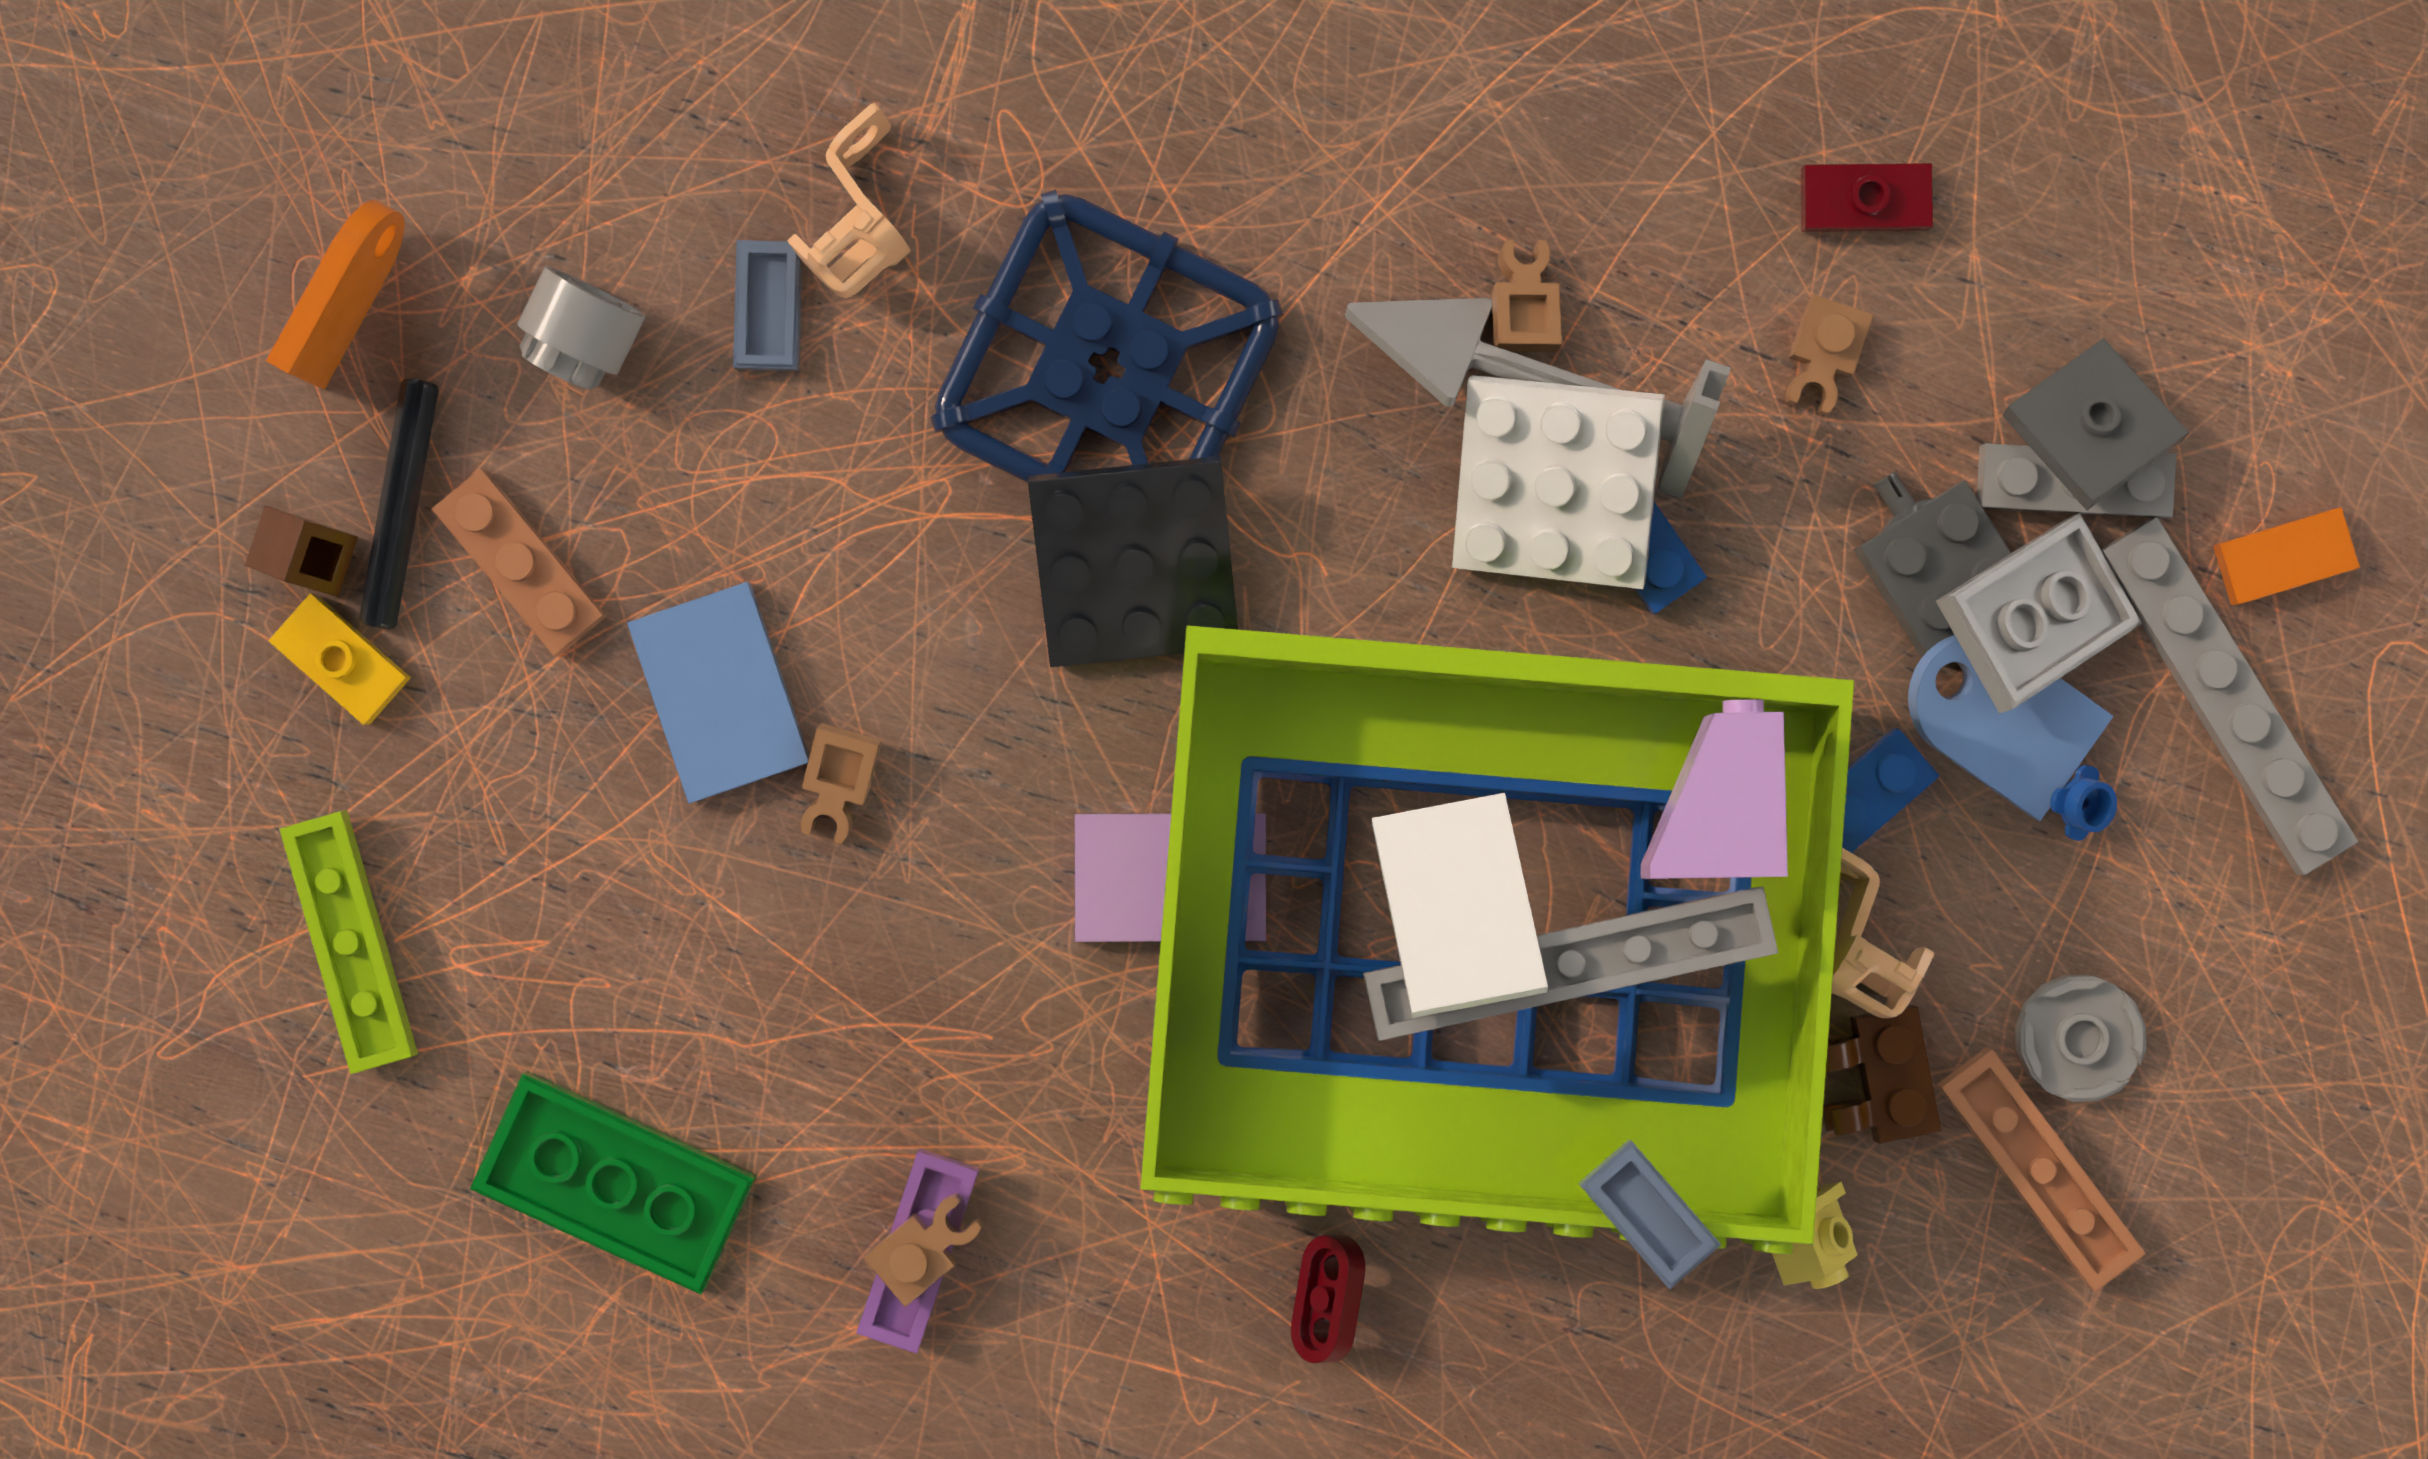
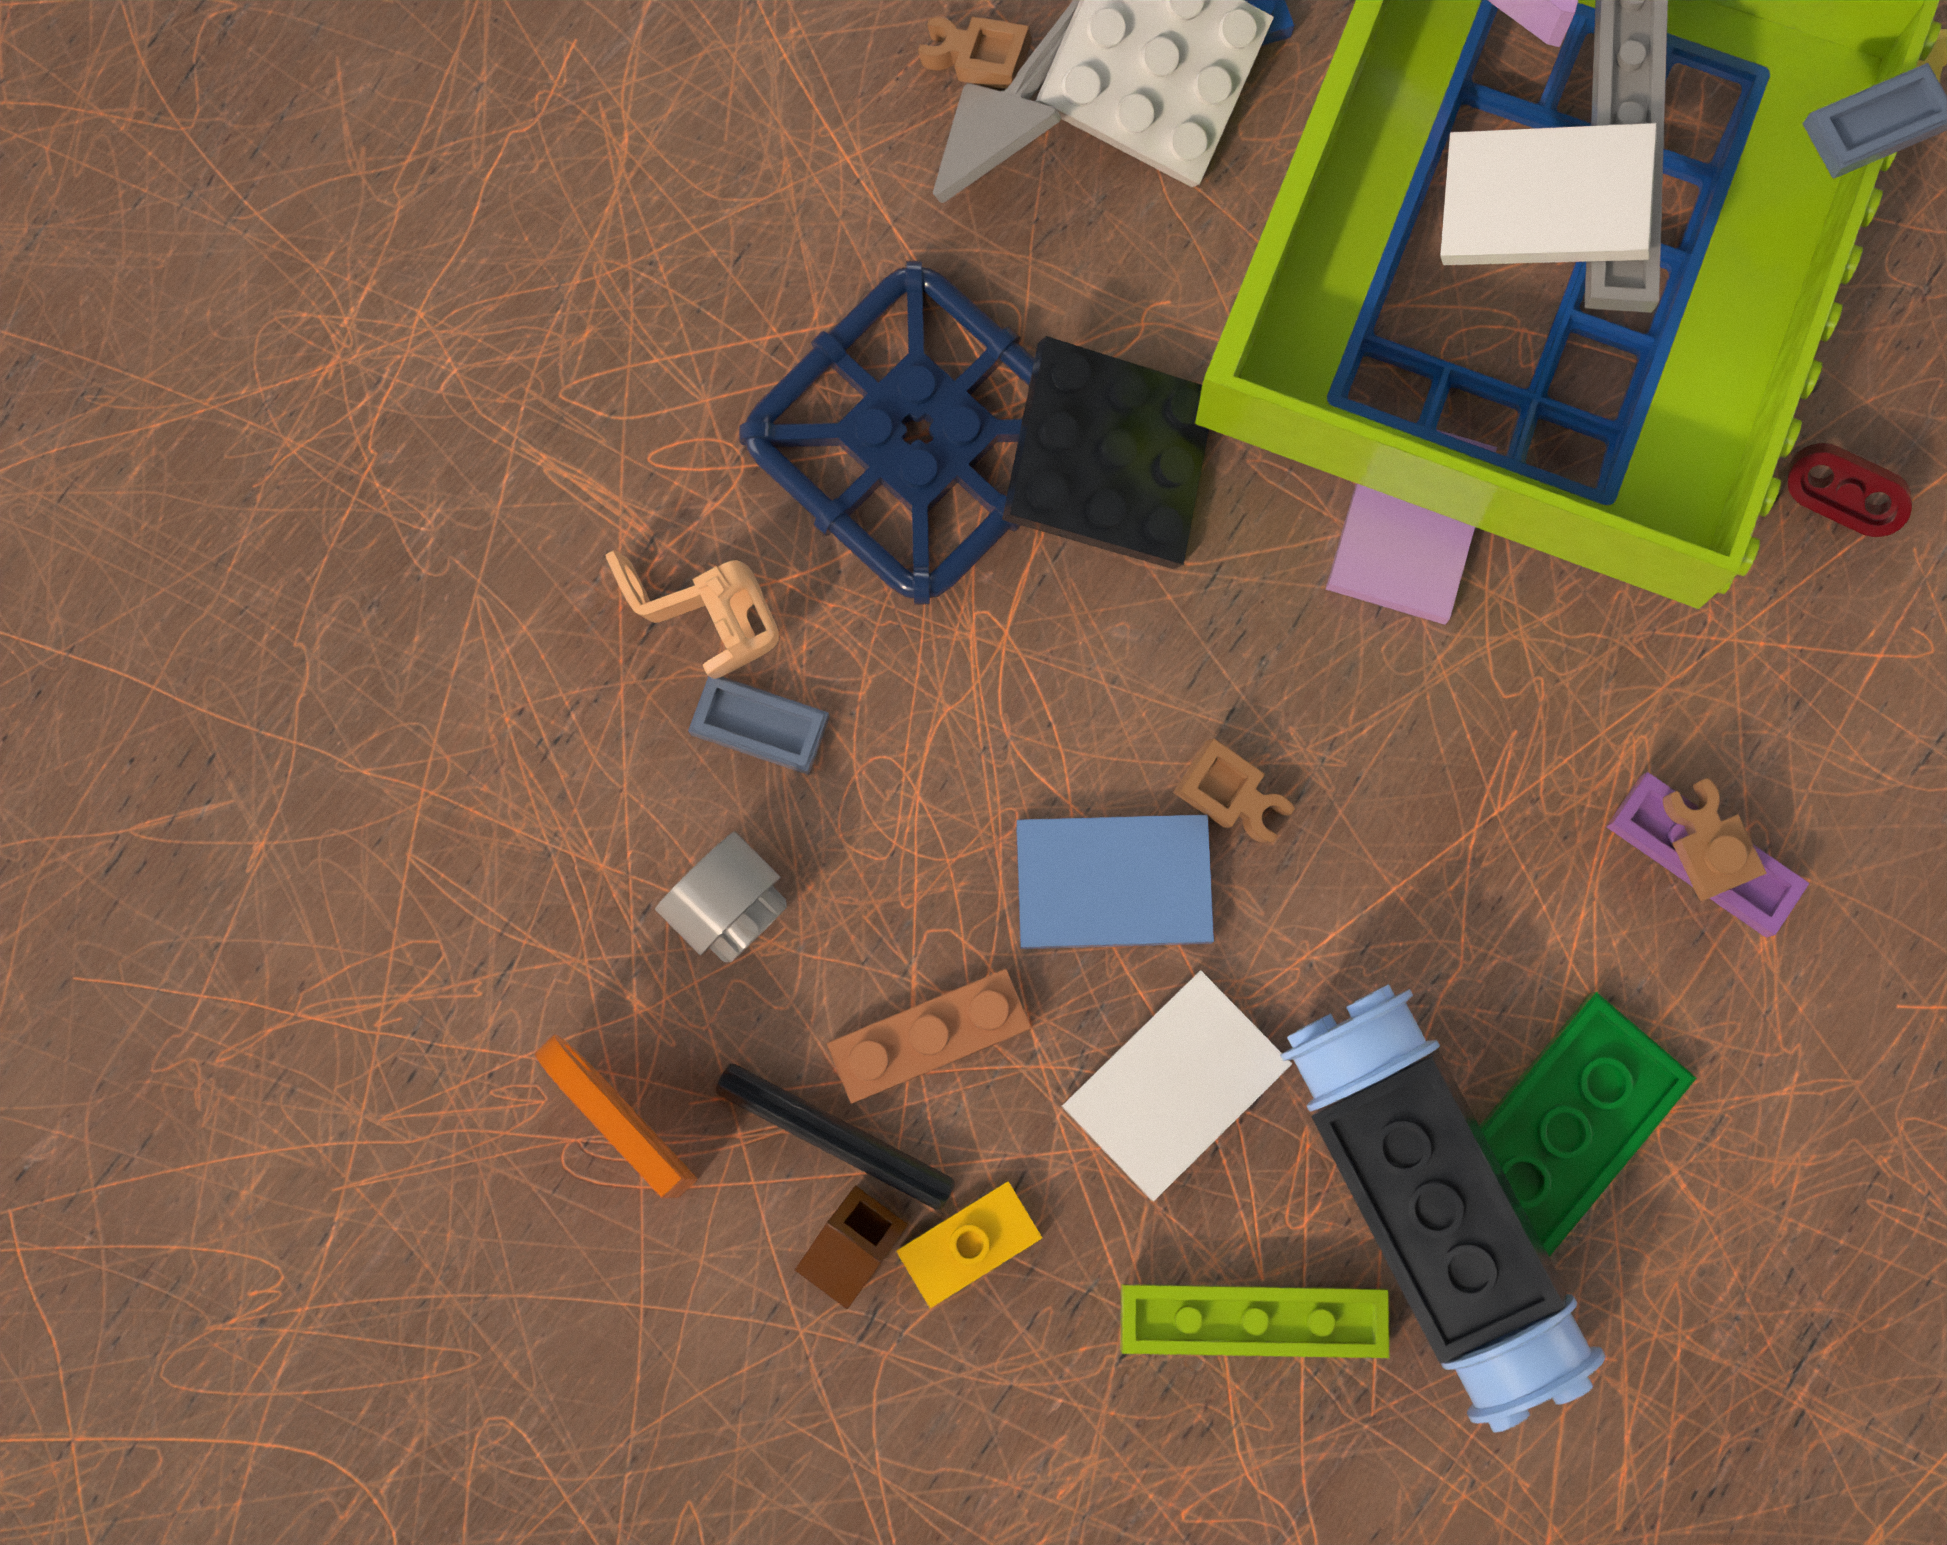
camera: 75 degrees left, 10 degrees down
(493, 1080) = (1442, 1210): none -> black brick
(545, 808) = (1176, 1085): none -> white tile

